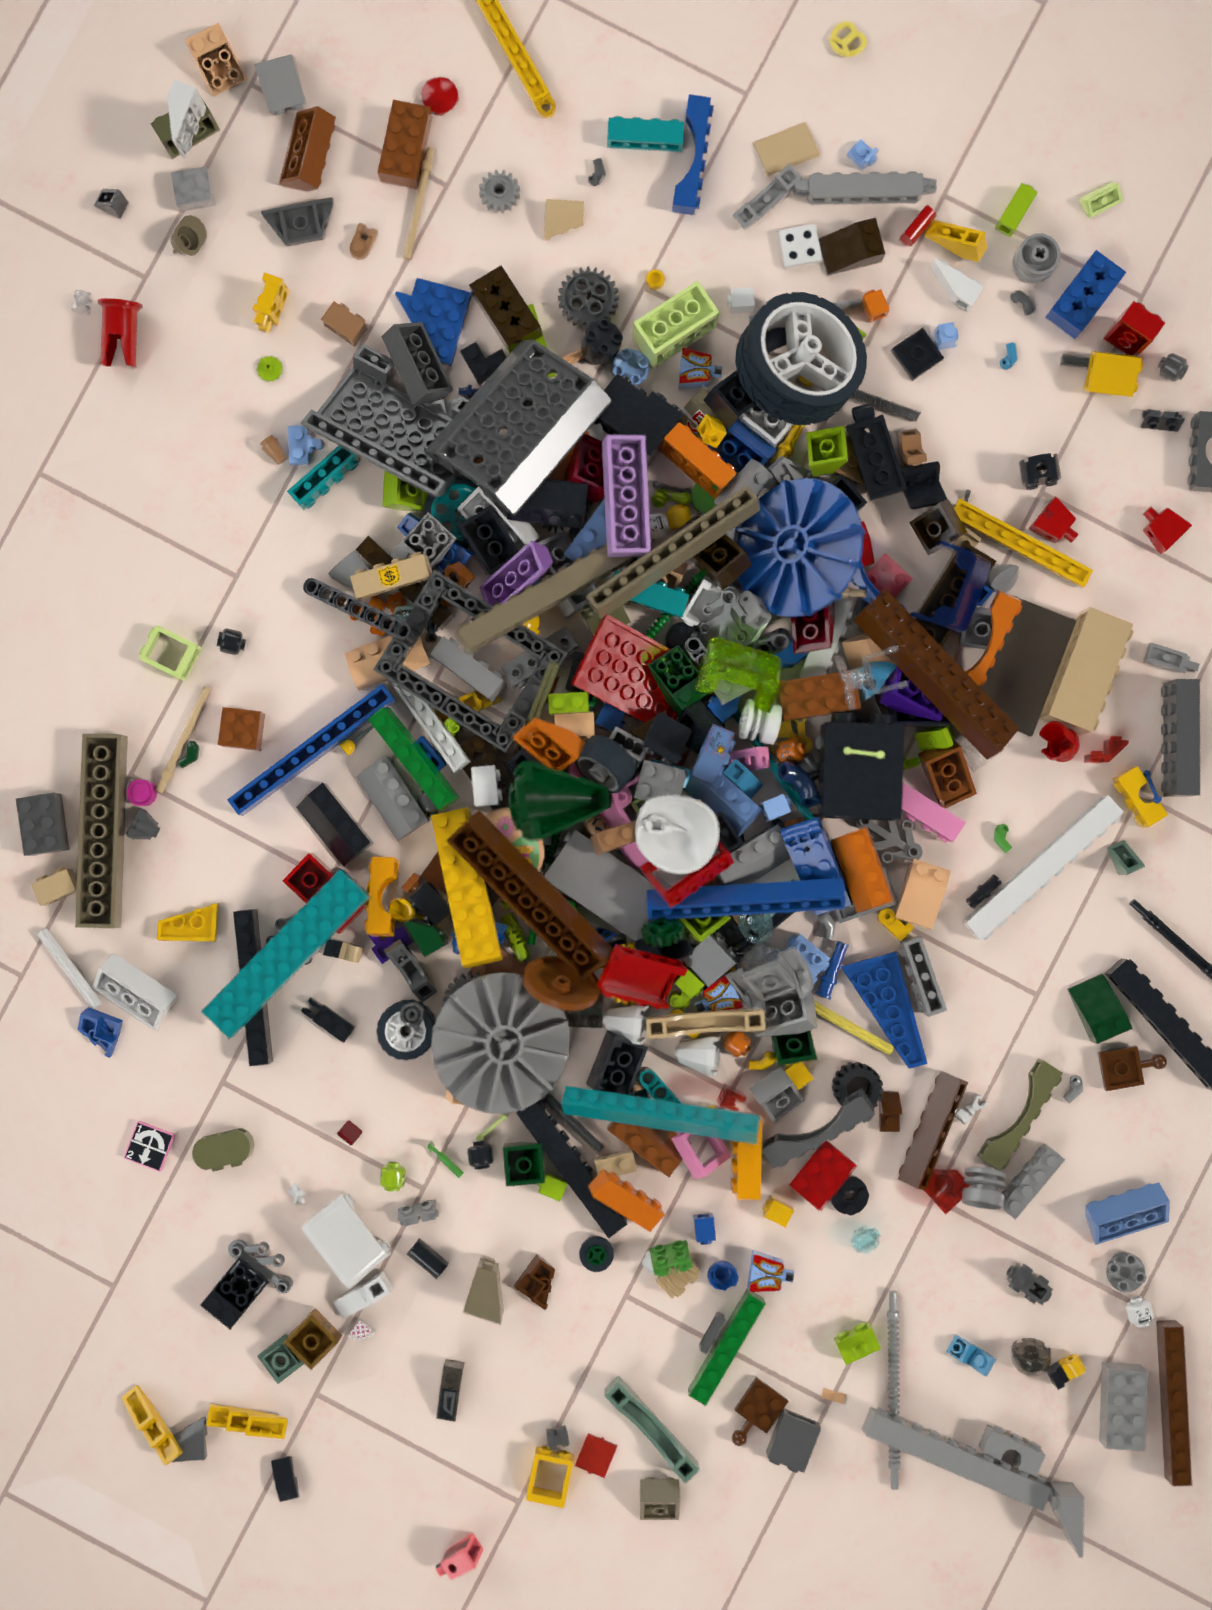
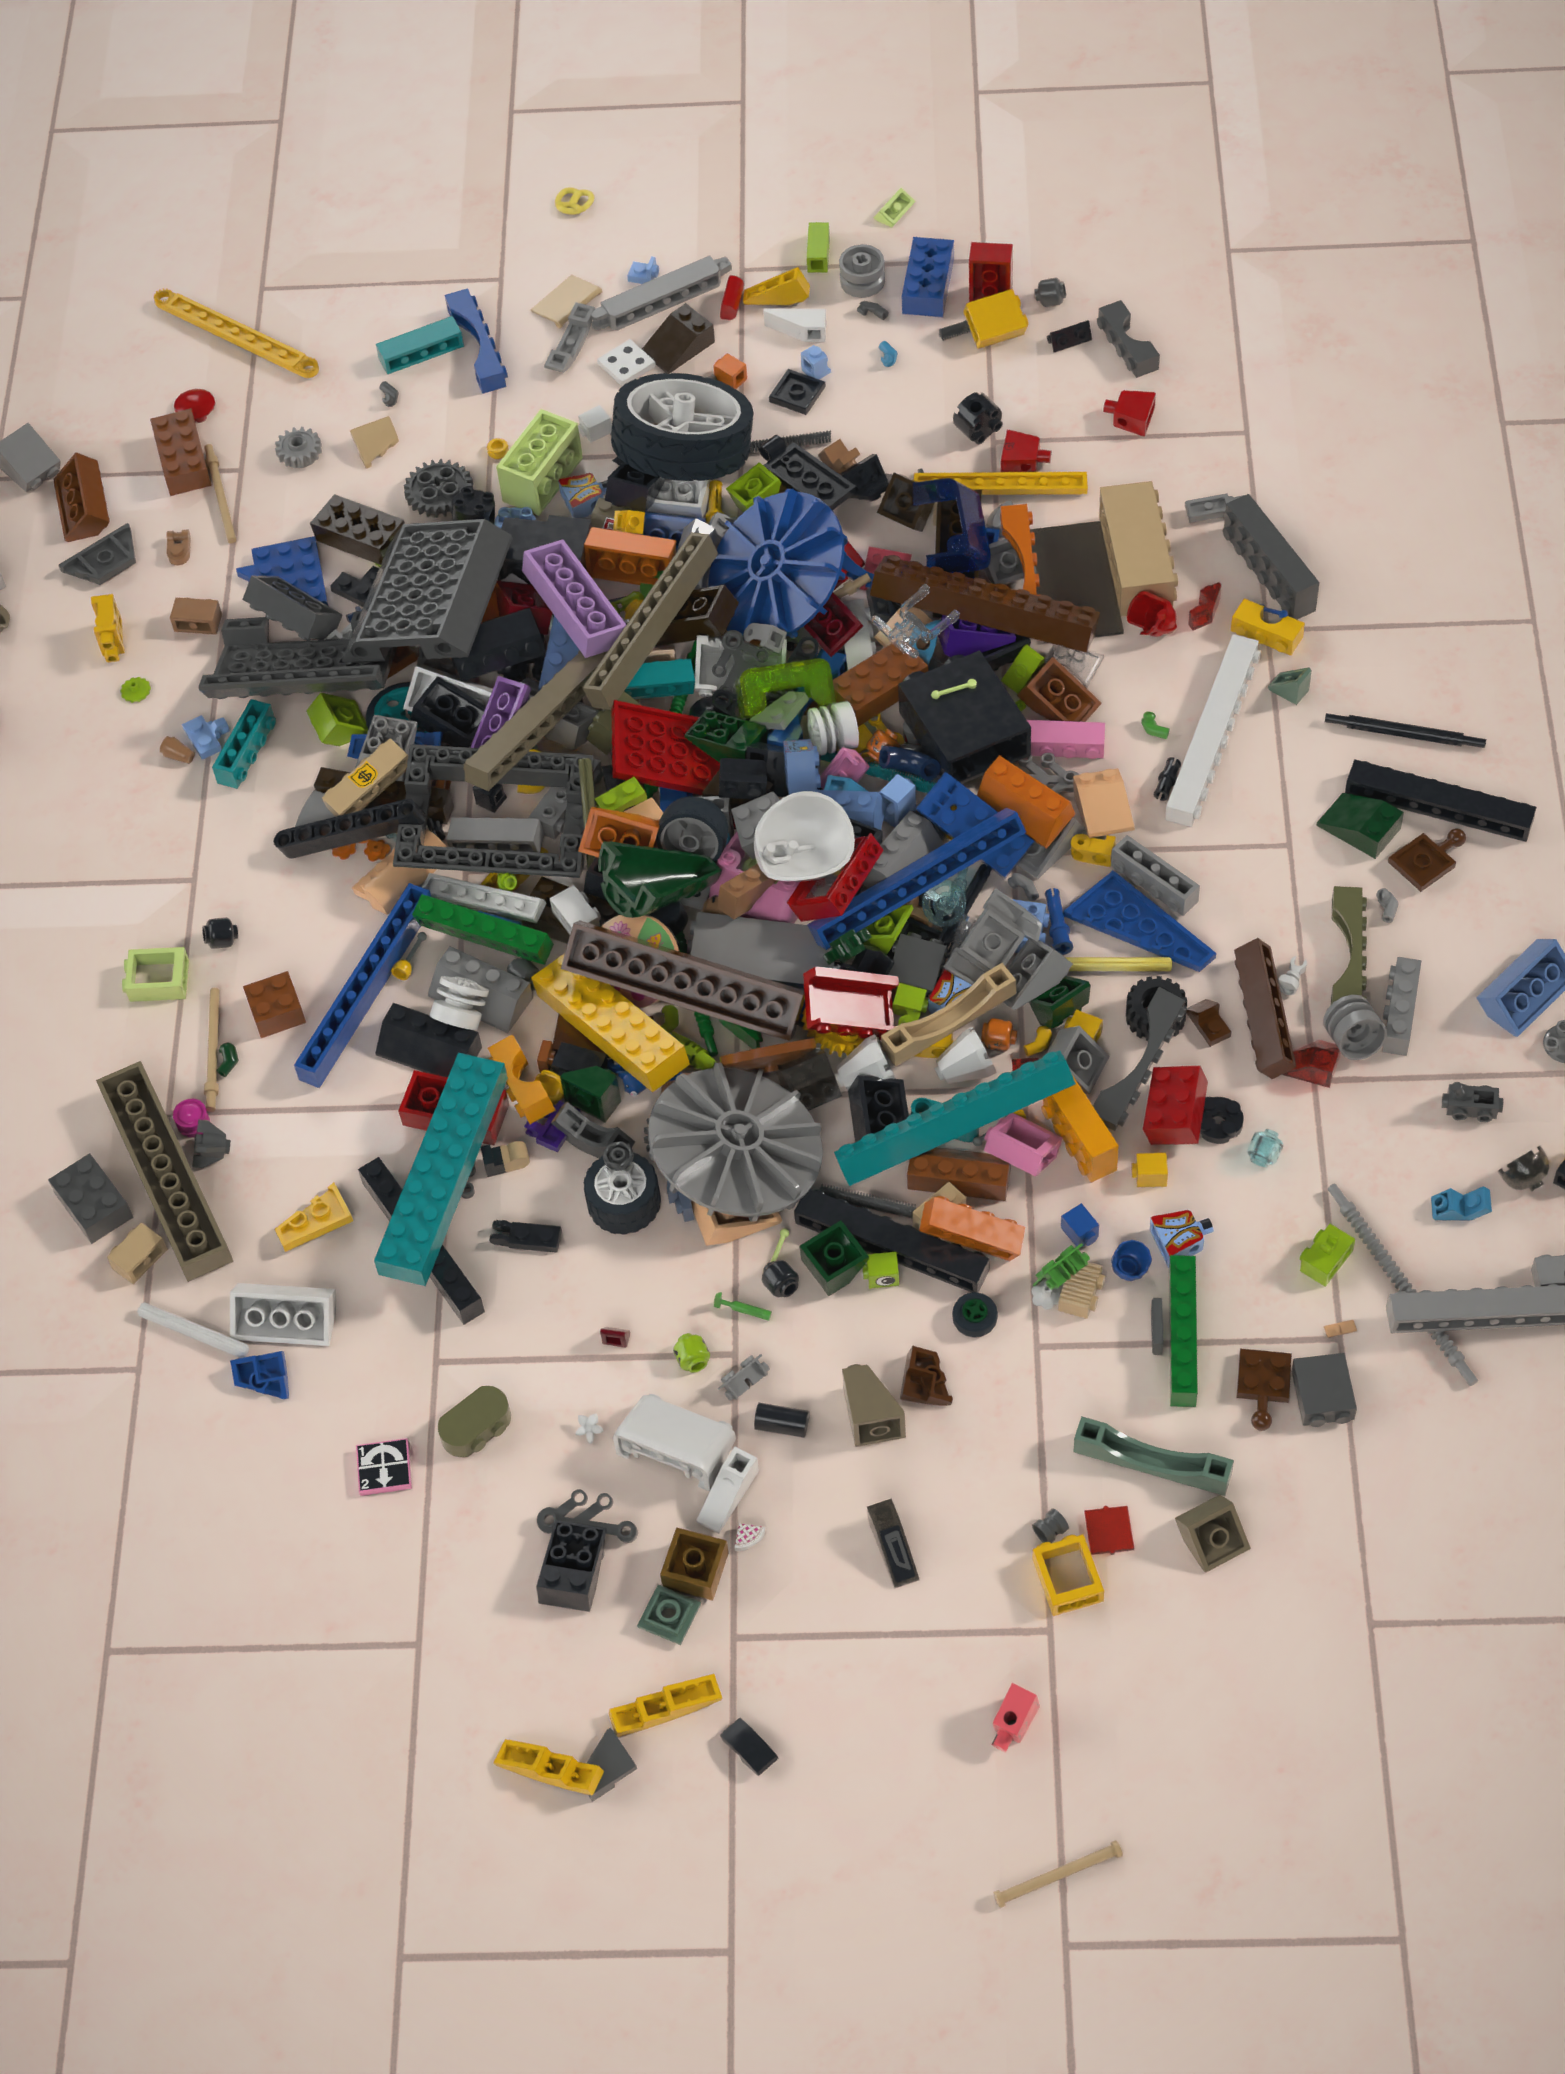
camera: 20 degrees left, 30 degrees down
(367, 812) = (459, 1002): none -> white wheel

